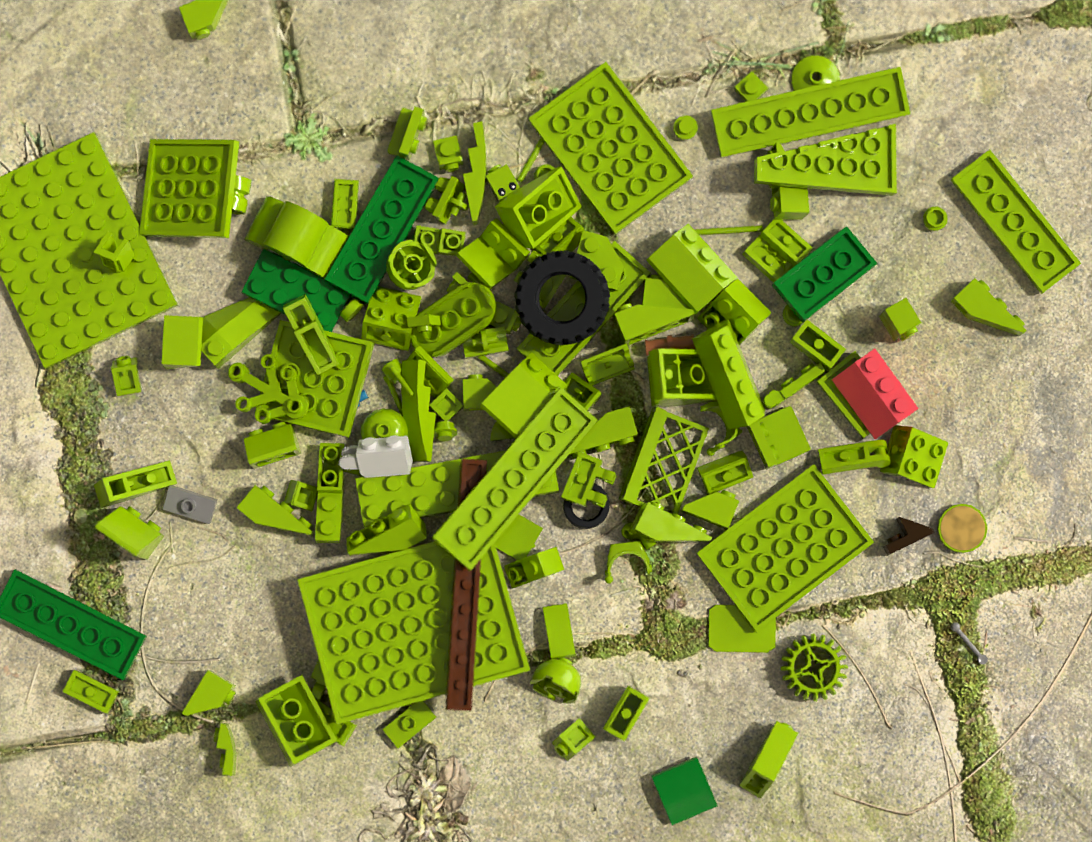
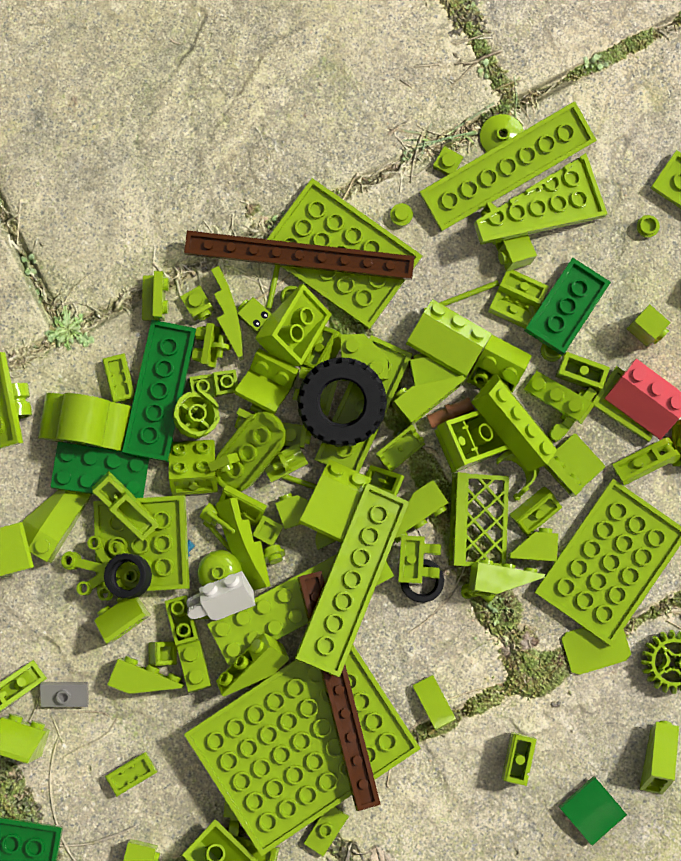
camera: 20 degrees left, 0 degrees up
(231, 605) = (131, 774): none -> lime plate
(275, 396) = (111, 570): none -> black tyre
(351, 310) = (155, 471): lime tile -> none
(518, 538) = (372, 630): lime piece -> none
(534, 567) = (393, 652): lime slope -> none
(557, 679) = (447, 747): lime cylinder -> none
(567, 136) = (299, 255): none -> reddish brown plate
(573, 740) = (478, 797): lime bracket -> none
(625, 548) = (464, 611): lime helmet -> none
(785, 363) = (559, 397): none -> lime plate

